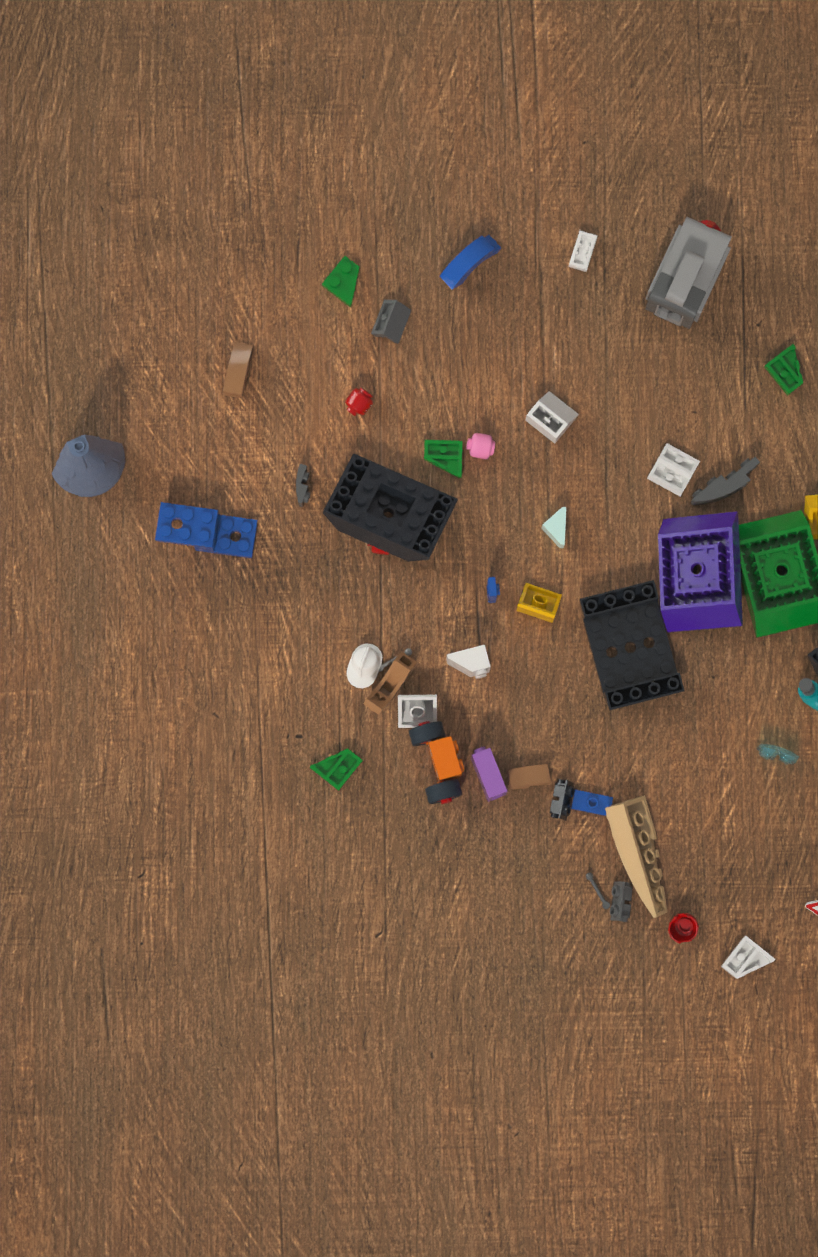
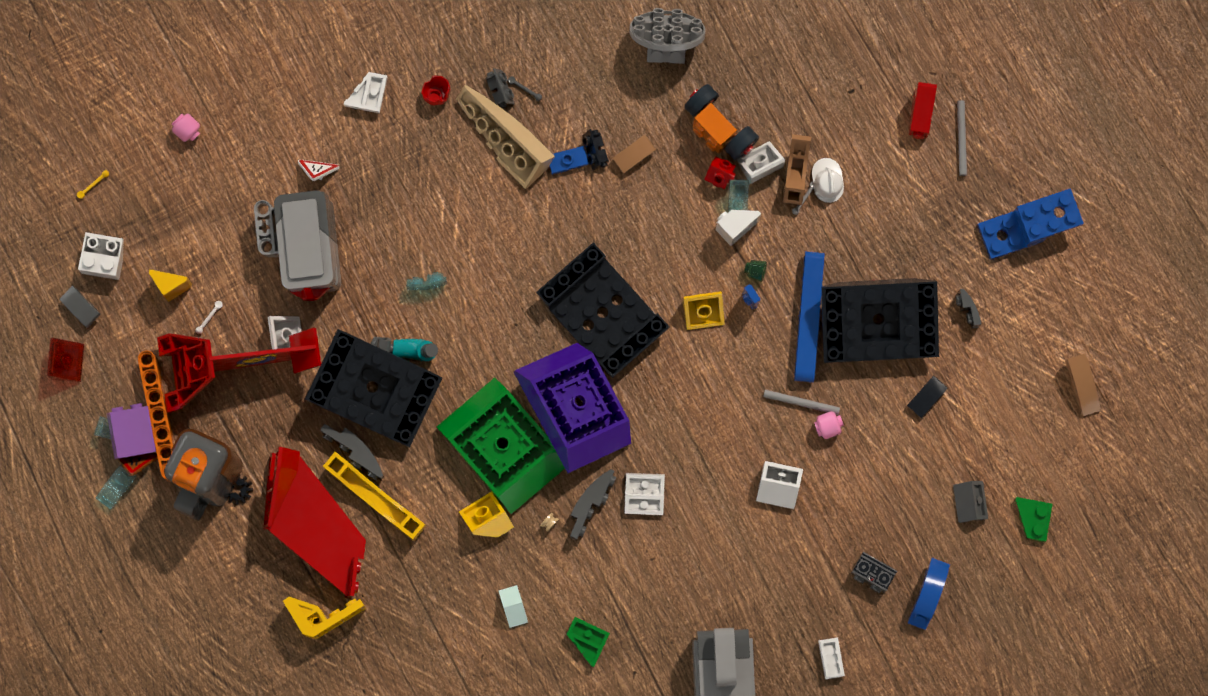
camera: 150 degrees right, 0 degrees up
(89, 465) = (1158, 227): sand blue cone -> none
(222, 642) = (962, 138): none -> light grey bar
(246, 681) = (922, 110): none -> red slope
(337, 768) = (803, 79): green wing -> none
(359, 401) = (959, 410): red head -> none
(380, 428) = (927, 396): none -> black slope
(442, 871) = (667, 34): none -> light grey bracket
(445, 455) = (856, 401): green wing -> none
(447, 550) = (809, 317): none -> blue beam
(456, 686) = (738, 195): none -> clear light blue slope
(460, 717) = (720, 172): none -> red brick
(473, 615) = (756, 269): none -> clear green hat
(488, 773) = (670, 135): medium lavender brick -> none
(493, 480) = (801, 402): none -> light grey bar
(508, 302) = (873, 572): none -> brick
(555, 527) = (722, 384): light aqua slope -> none
(770, 485) = (549, 522): none -> tan bush

